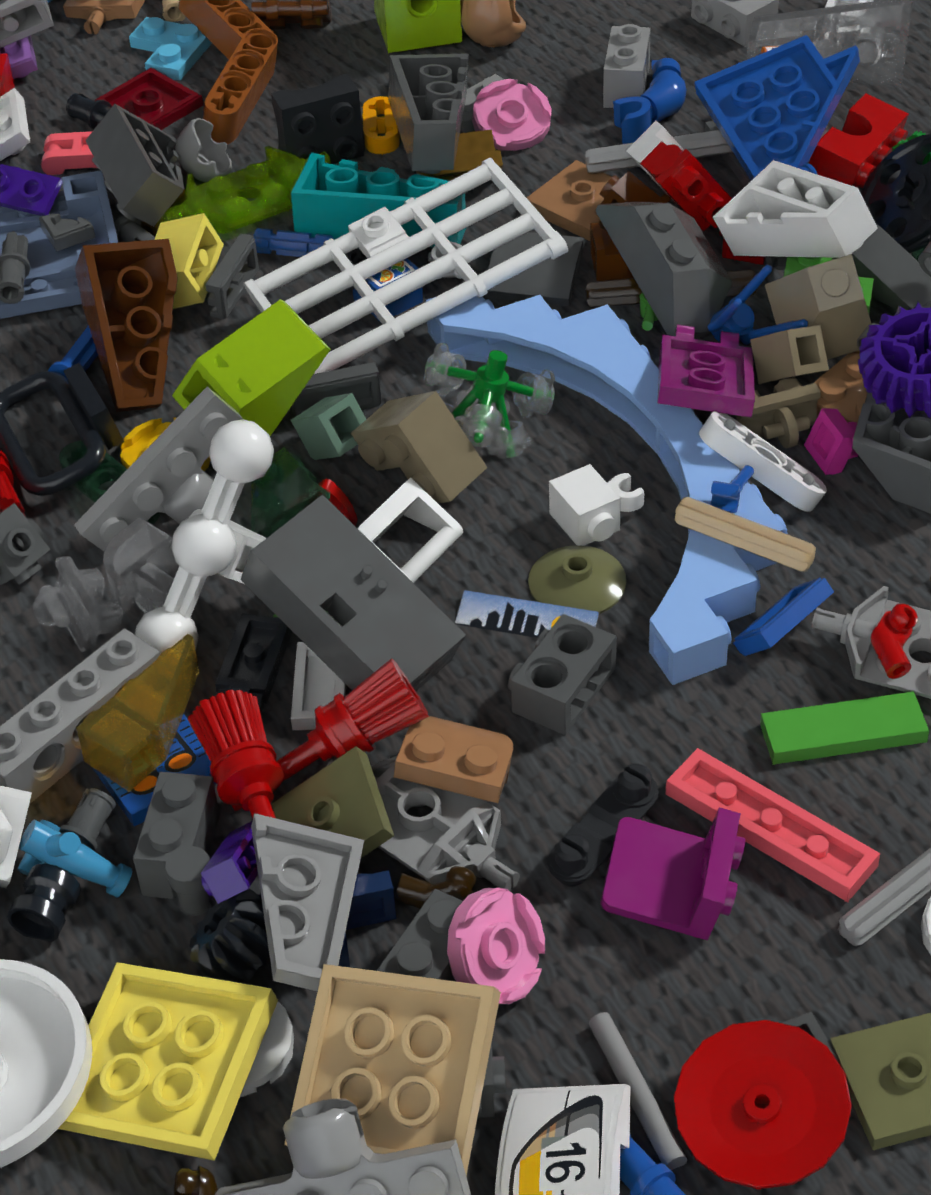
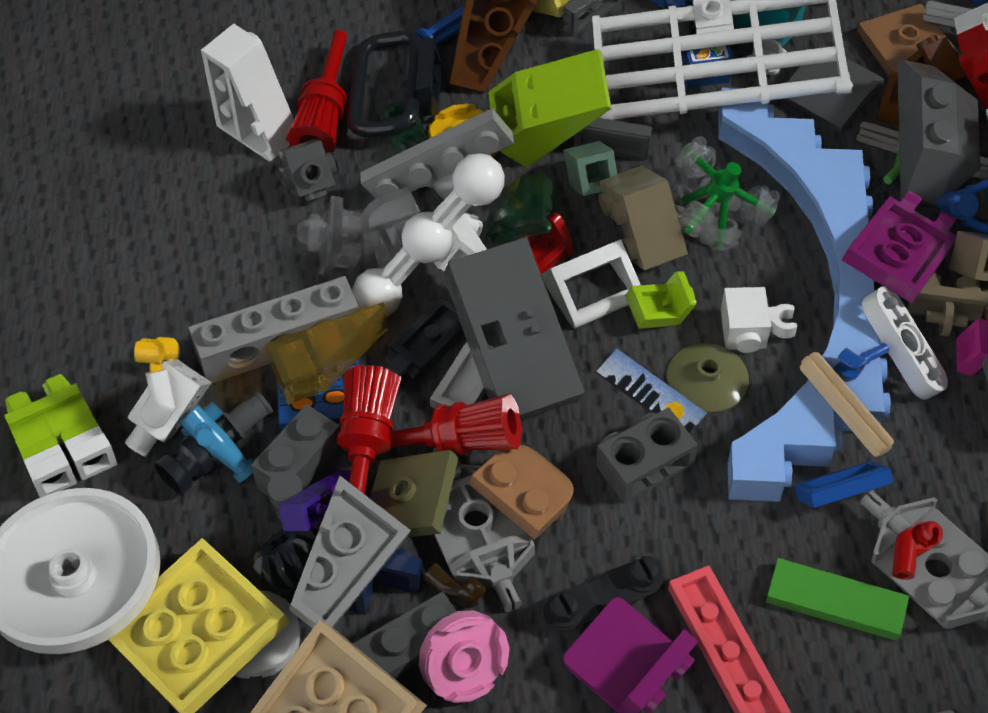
camera: 25 degrees right, 10 degrees up
(490, 526) = (662, 303): none -> lime bracket

